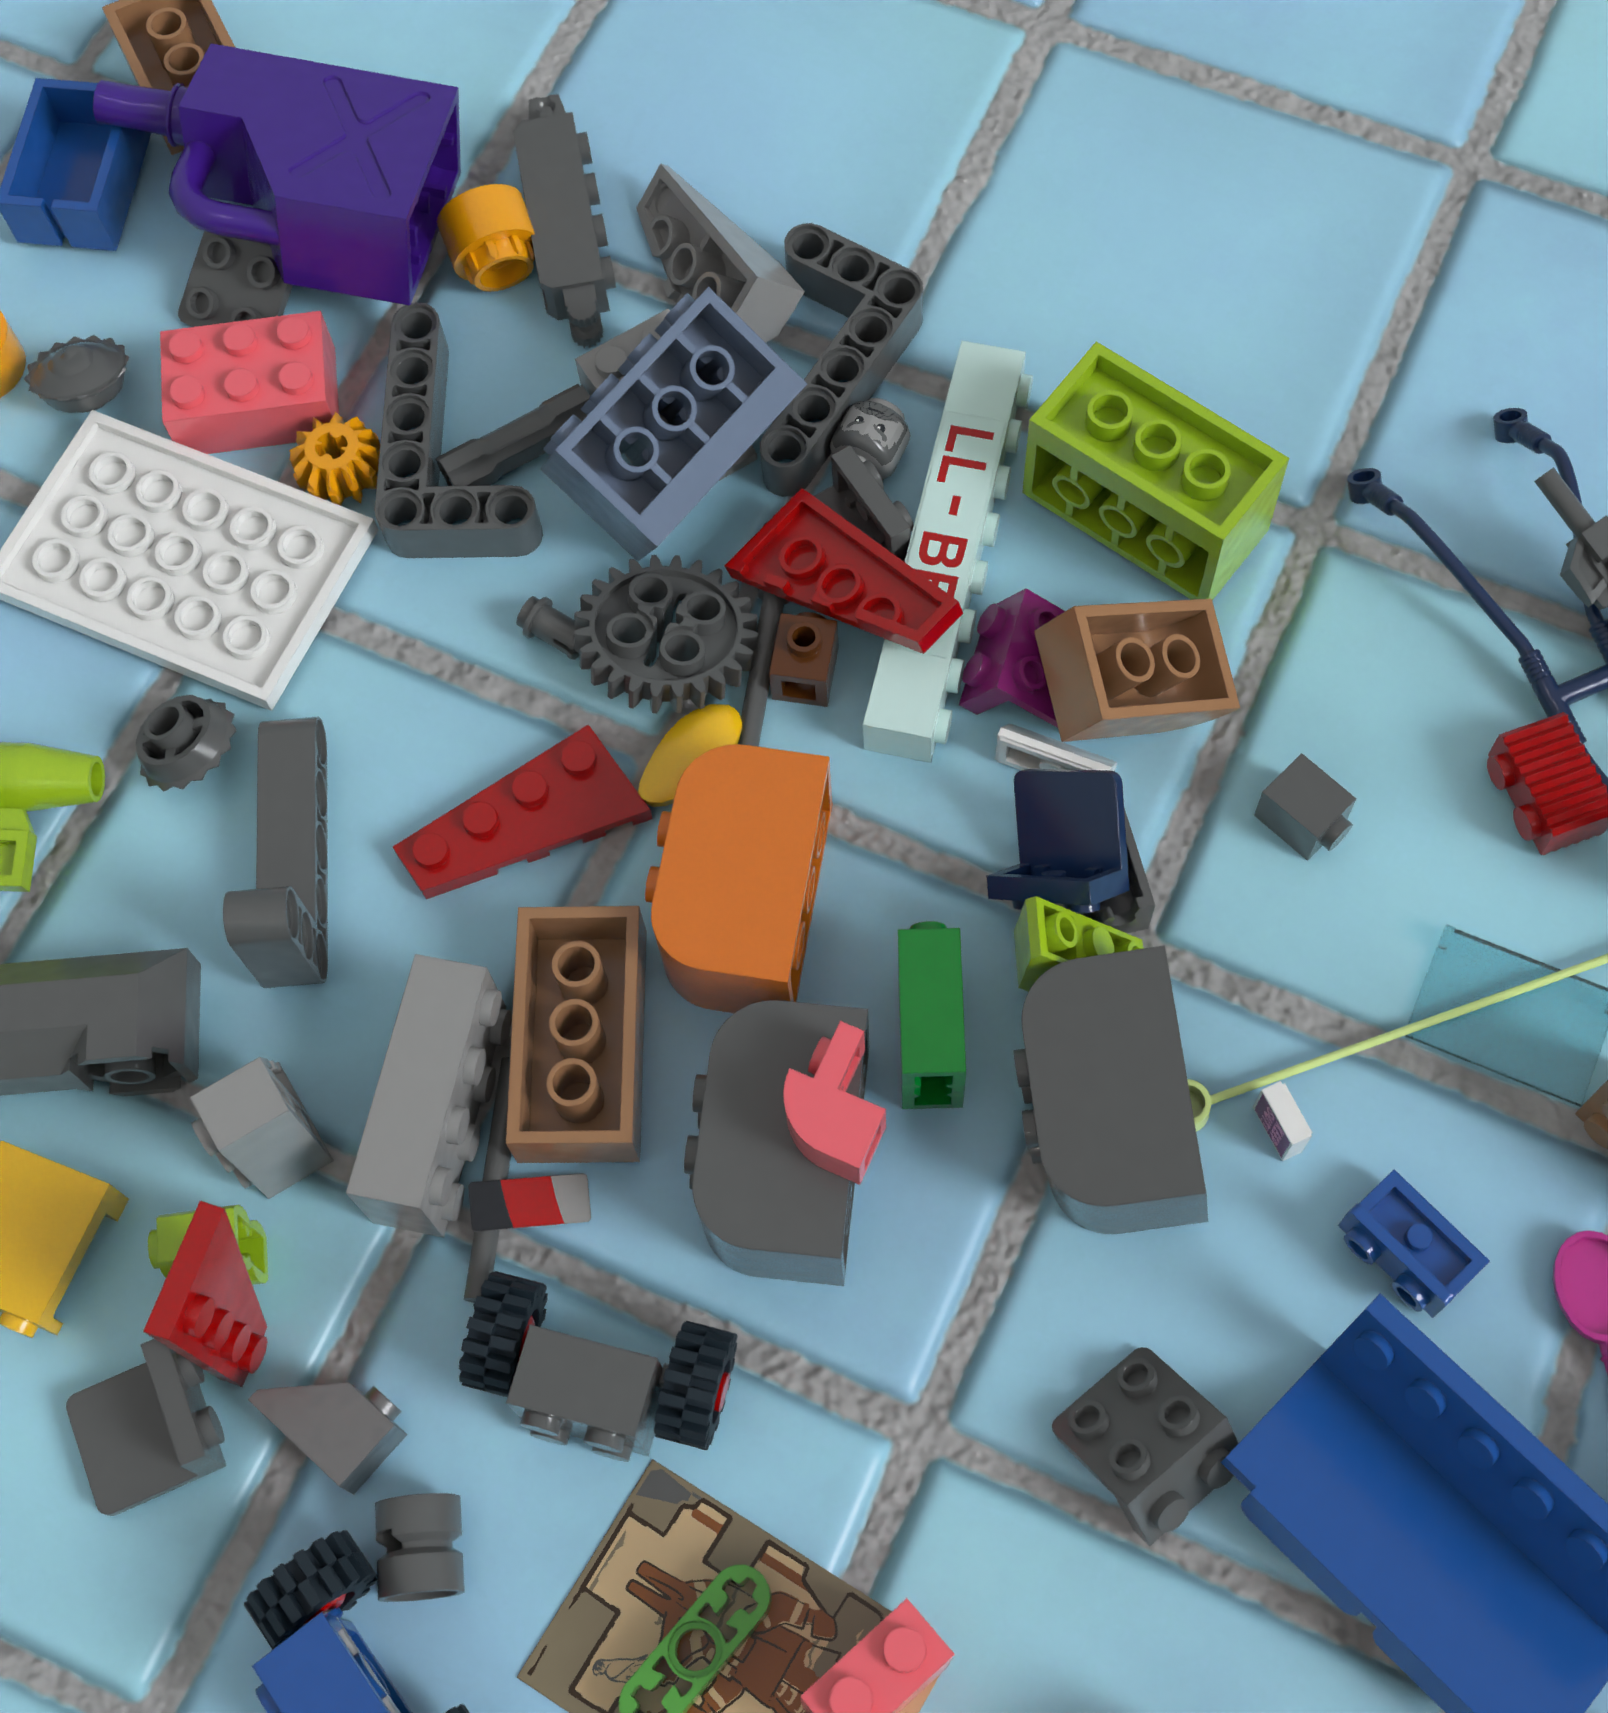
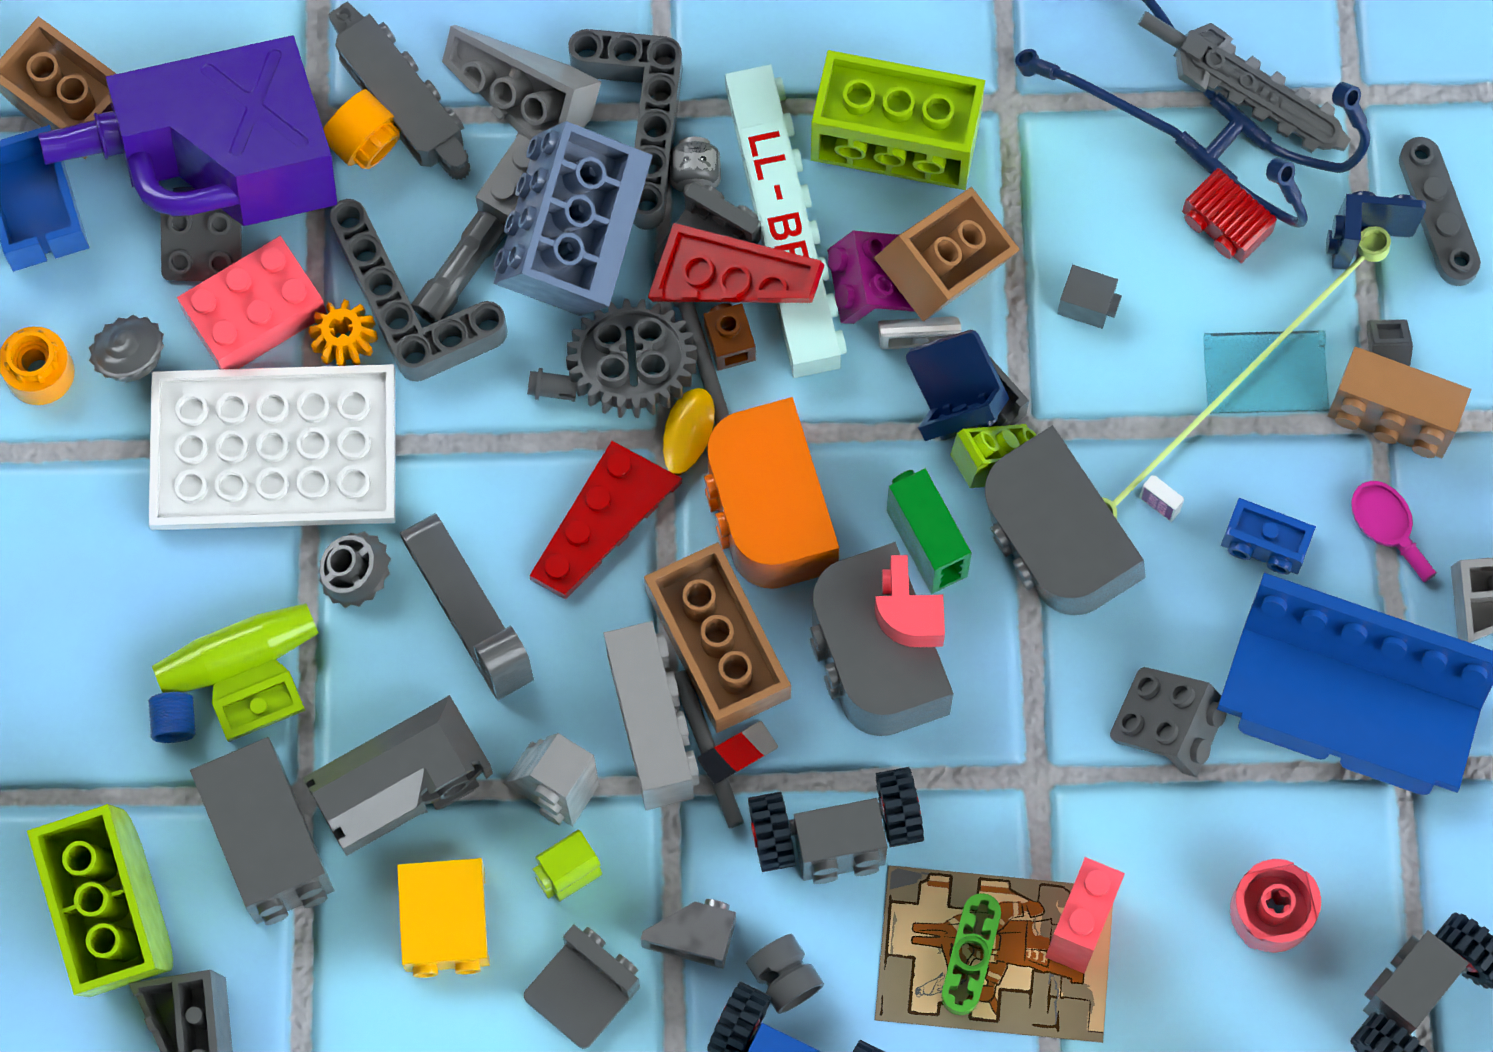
camera: 30 degrees left, 5 degrees up
(209, 1302) = (607, 888): red wing -> none

